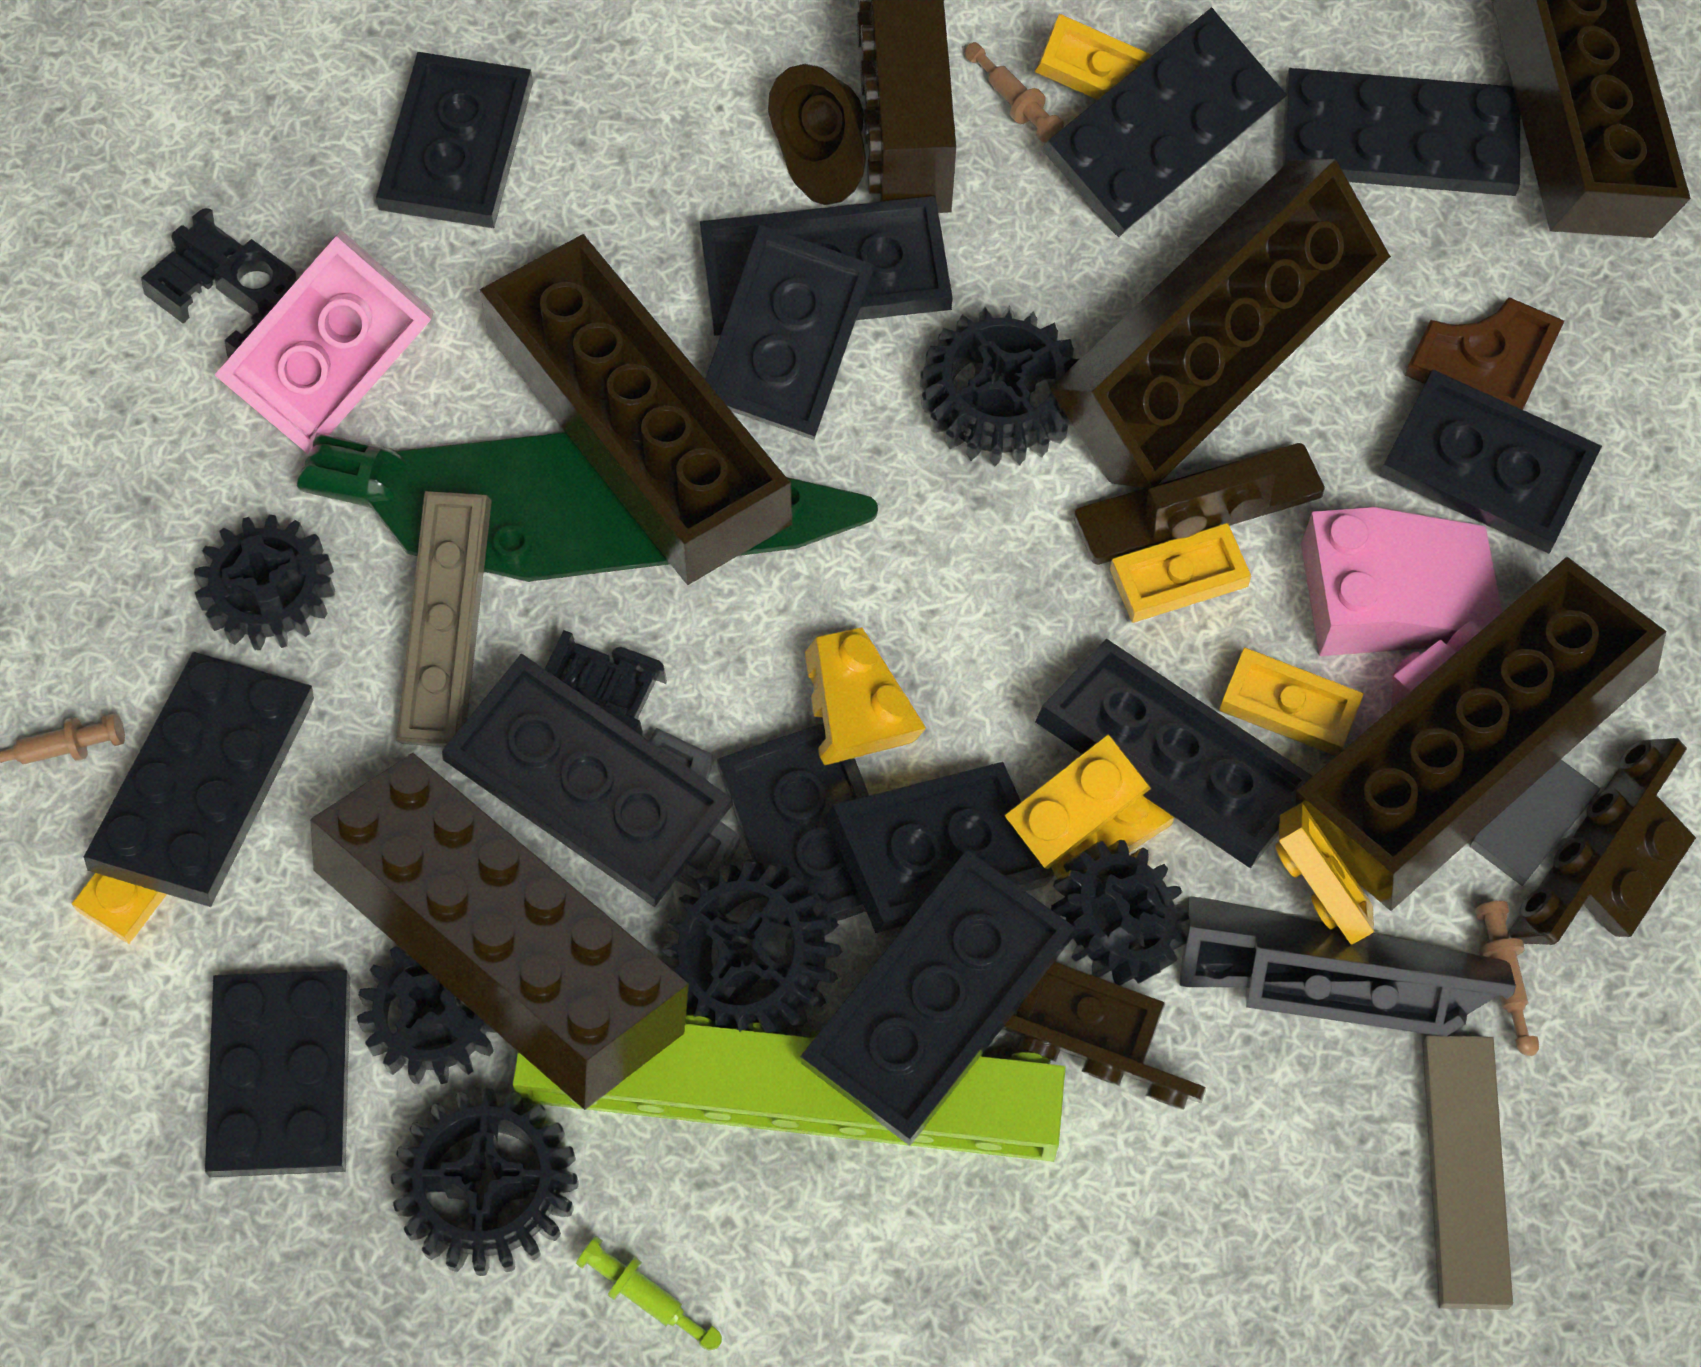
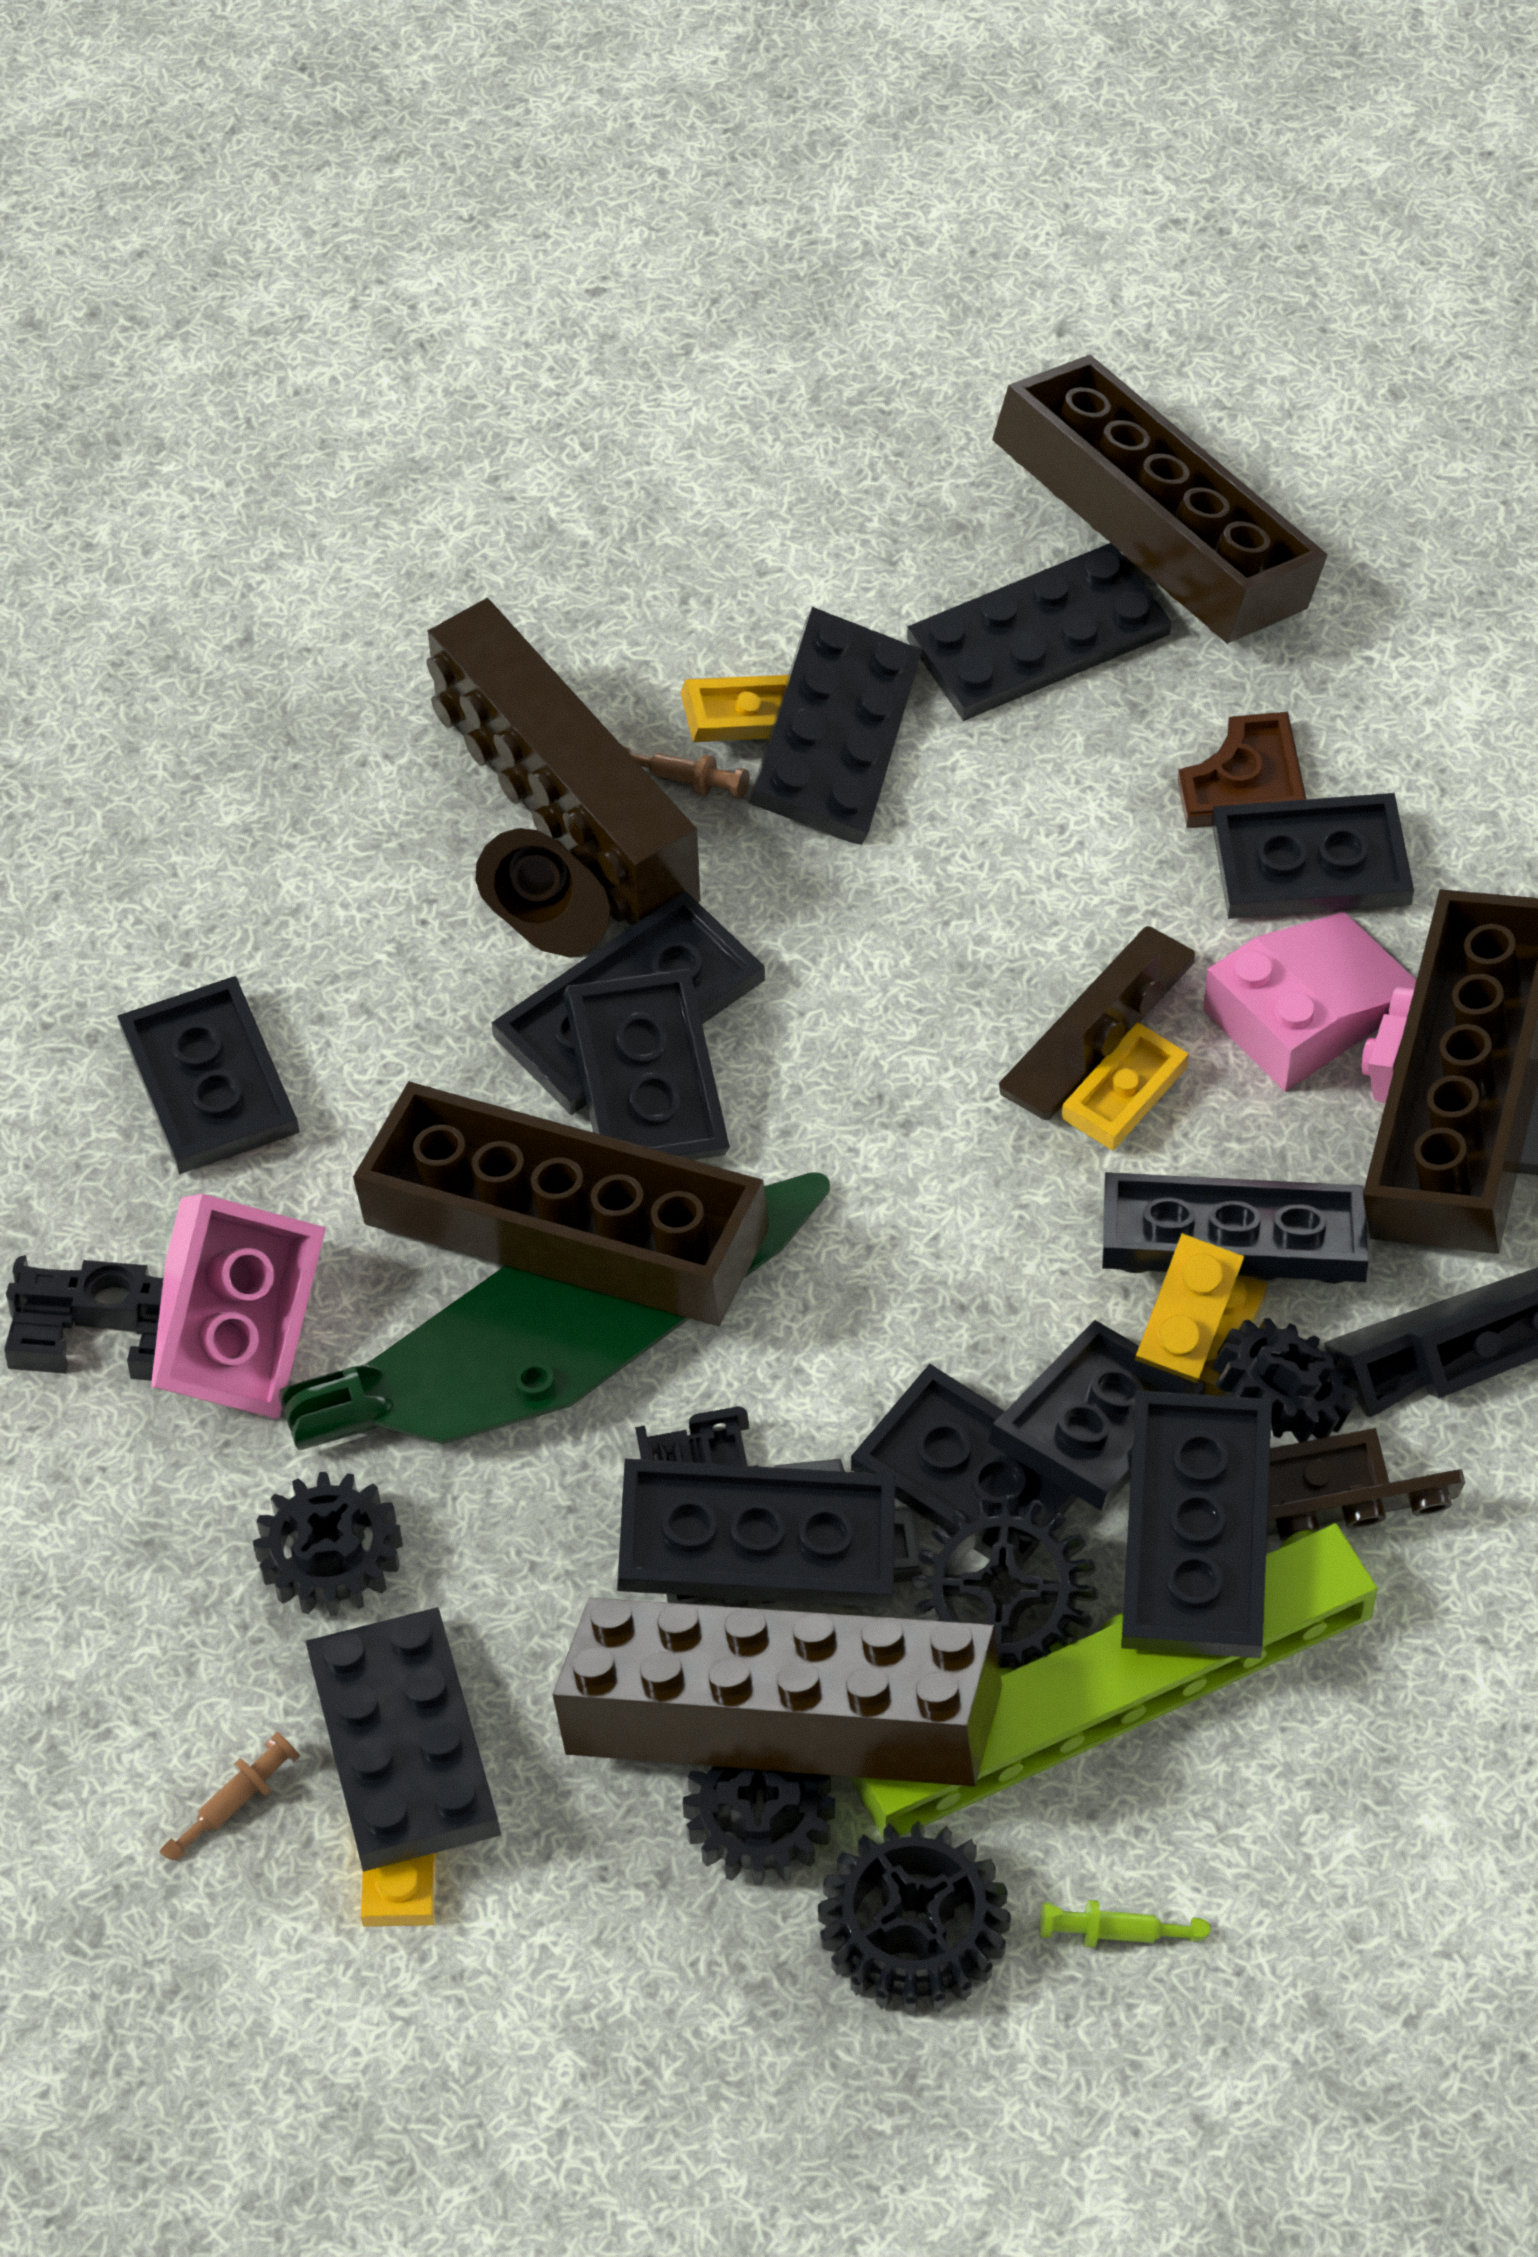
camera: 30 degrees left, 10 degrees down
(278, 1074) = (658, 1946): black plate -> none
(443, 618) = (522, 1479): dark tan tile -> none
(857, 698) = (919, 1330): yellow wing -> none
(995, 405) = (872, 1035): black gear -> none
(1221, 323) = (1017, 861): dark brown brick -> none
(1291, 702) = (1294, 1137): yellow plate -> none
(1337, 894) = (1450, 1266): yellow plate -> none

